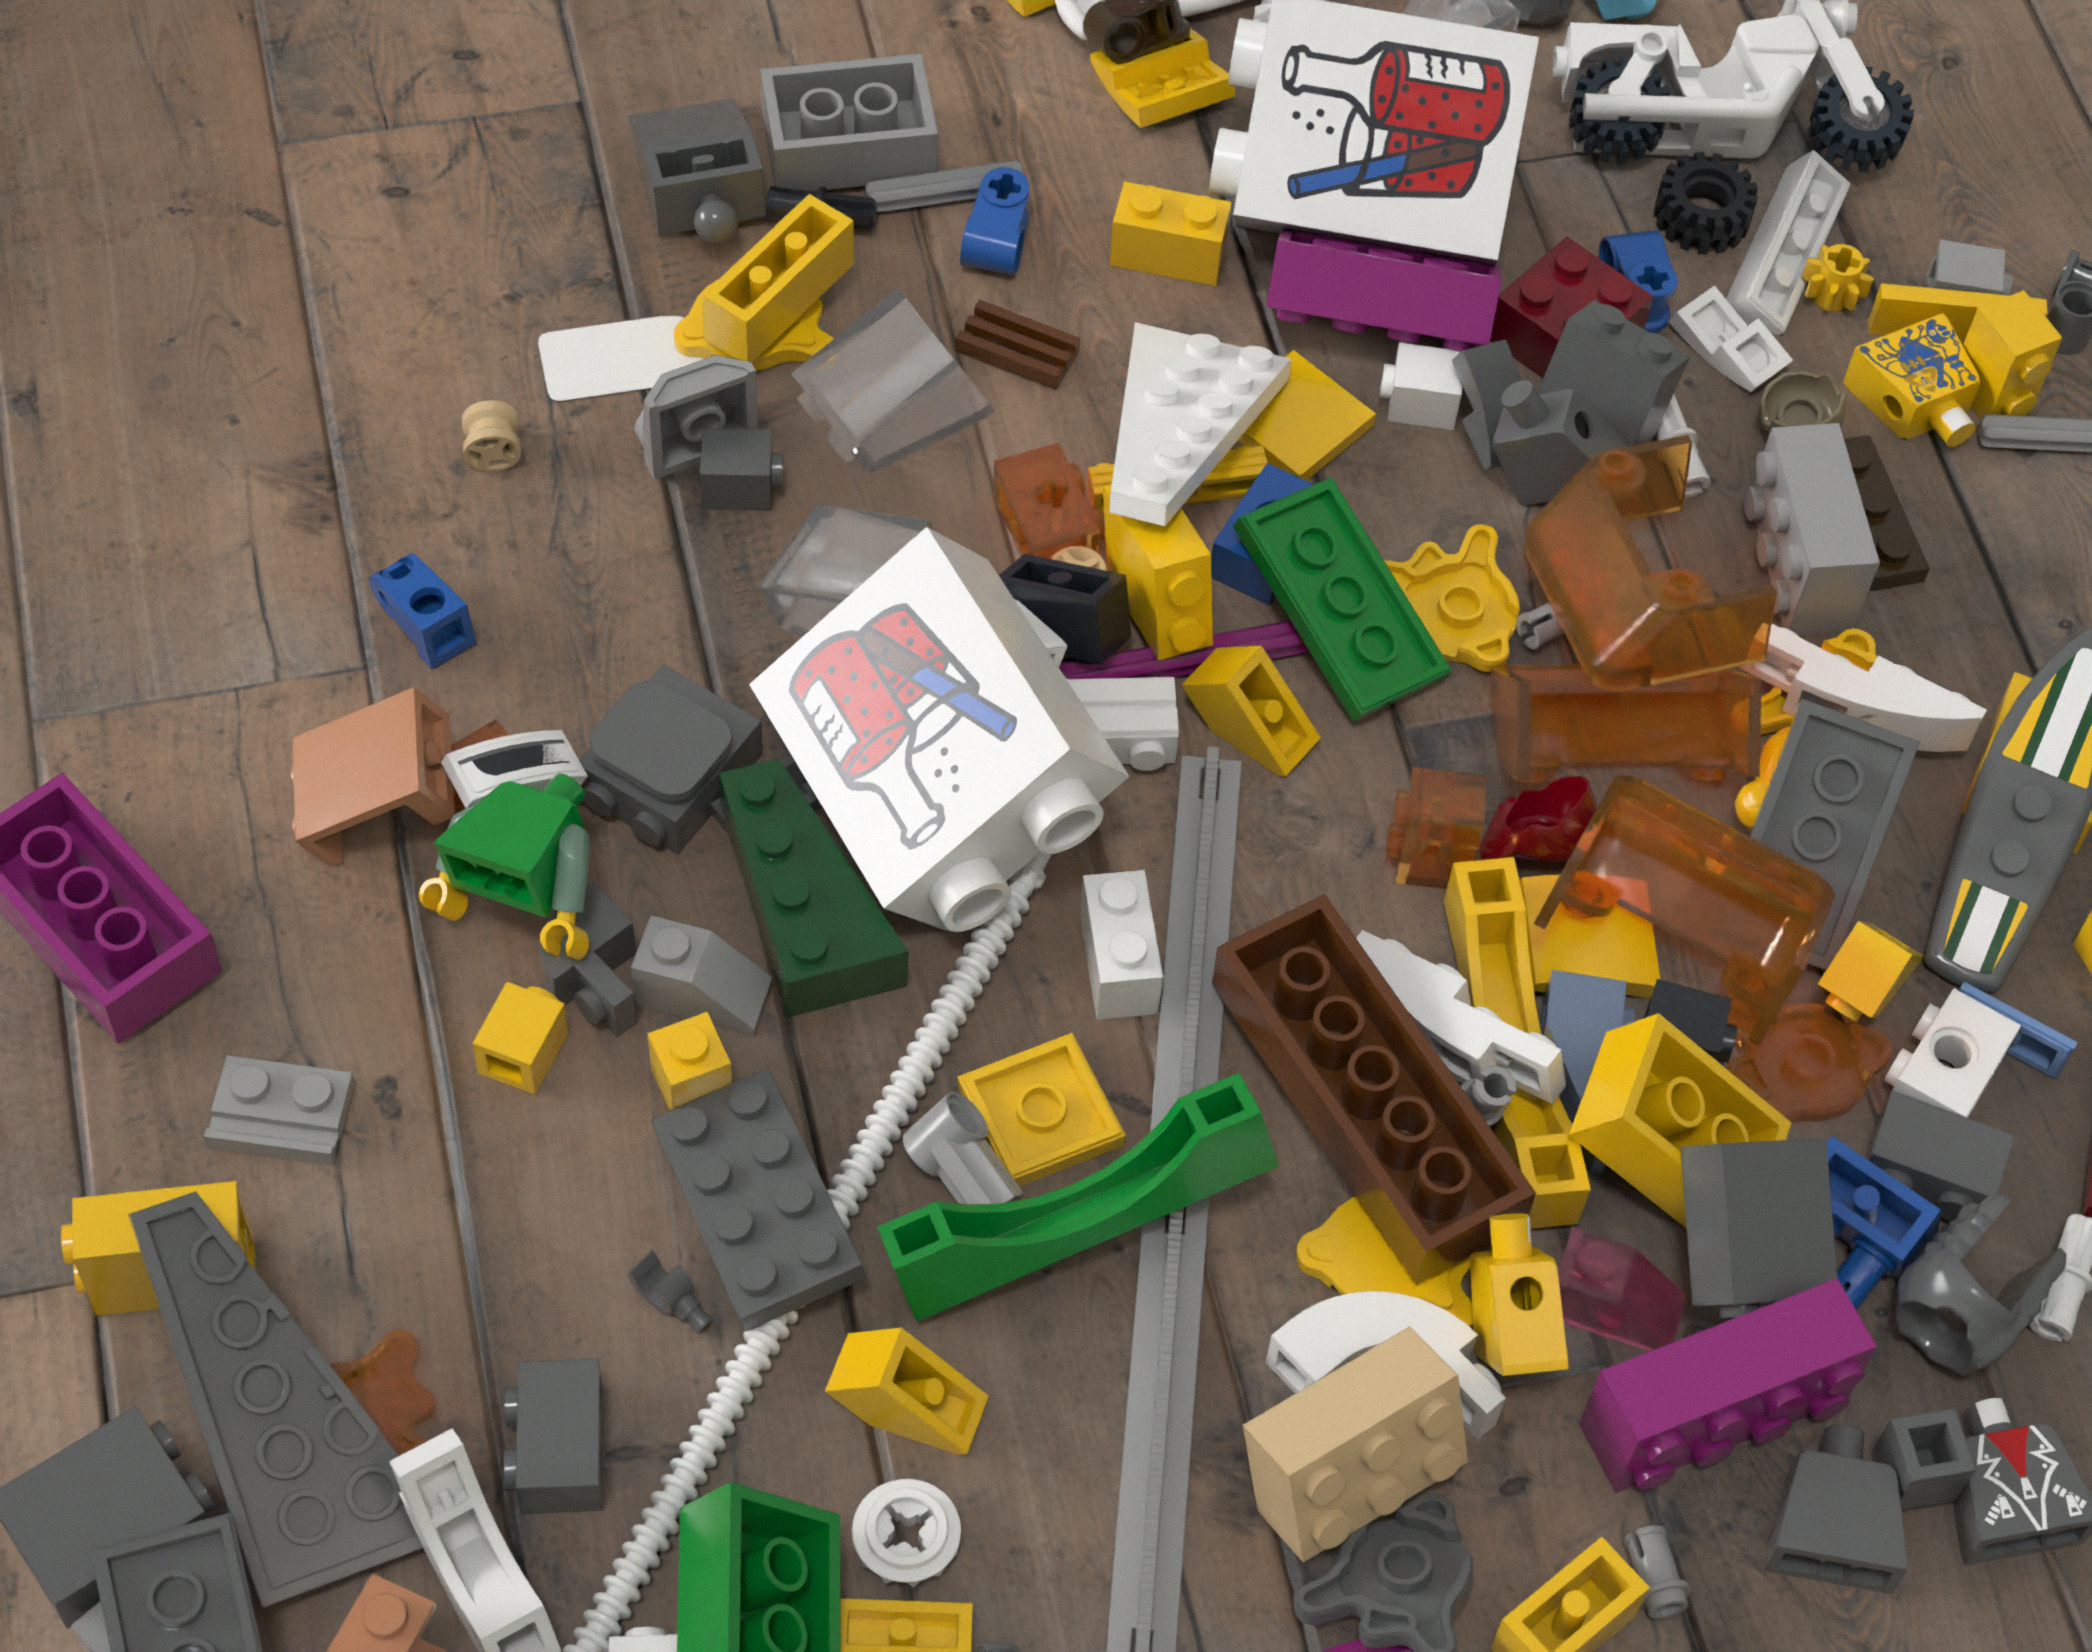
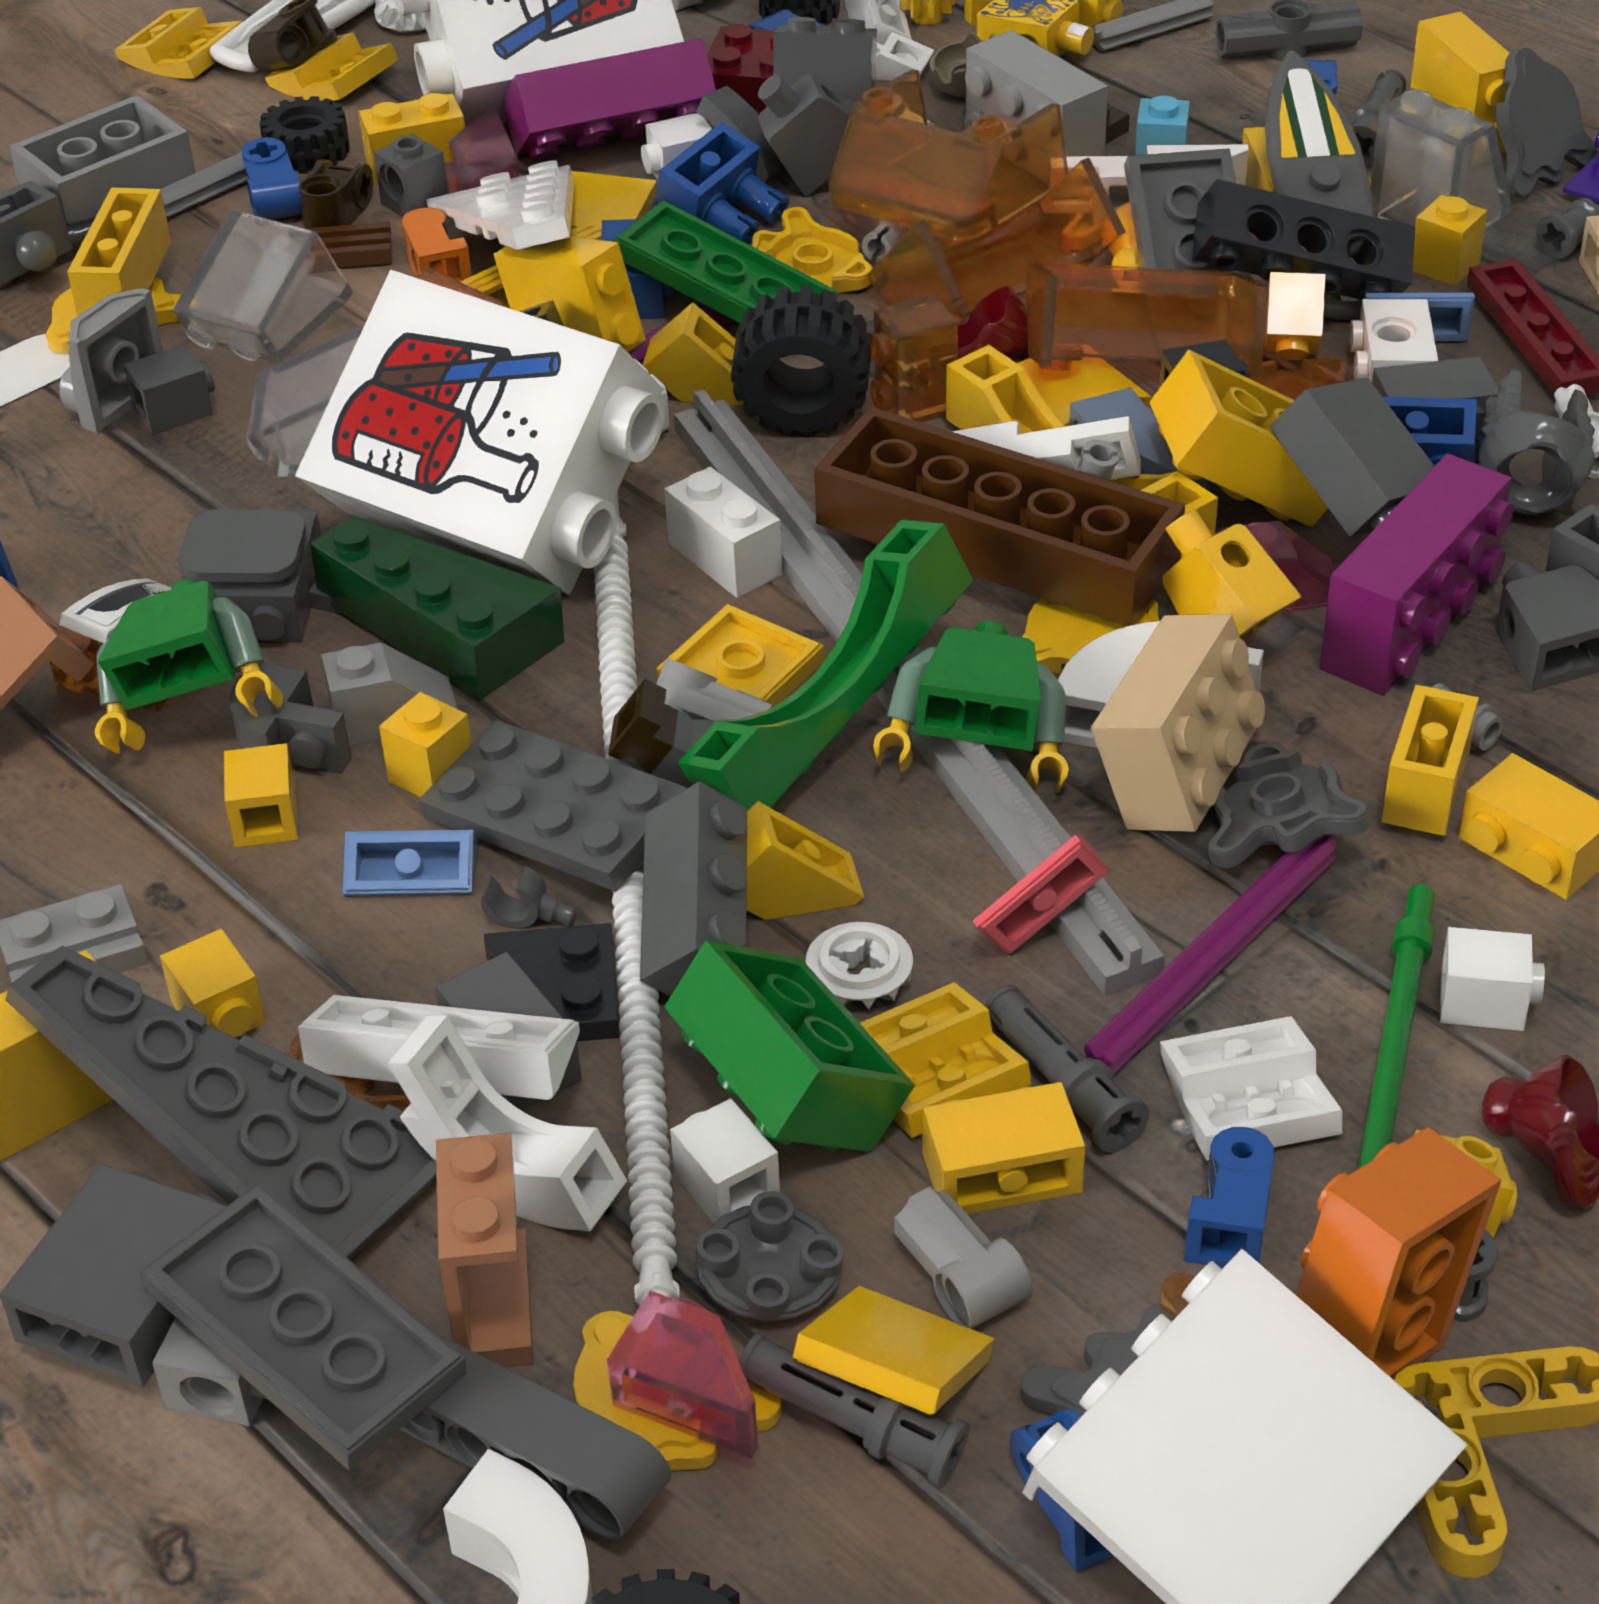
camera: 25 degrees left, 15 degrees down
(353, 1242) = (215, 982): none -> yellow brick
(509, 1454) = (513, 1051): none -> white slope
(605, 1185) = (410, 862): none -> medium blue slope
(651, 1393) = (570, 969): none -> black wing
(794, 1388) = (691, 882): none -> dark grey brick
(890, 1175) = (654, 734): none -> dark brown leg
(1047, 273) = (334, 194): none -> dark brown piece
(1073, 142) = (308, 130): none -> black tyre
(1095, 390) = (431, 247): none -> orange leg
(1100, 1563) = (1042, 894): none -> coral slope
(1133, 289) = (410, 174): none -> dark grey brick
(1198, 1302) = (980, 691): none -> green torso
(1219, 294) = (480, 152): none -> clear pink slope
(1322, 776) = (801, 326): none -> black tyre
(1414, 453) = (715, 177): none -> blue brick
(1931, 627) = (1161, 122): none -> medium azure brick
(2016, 938) = (1283, 223): none -> black brick

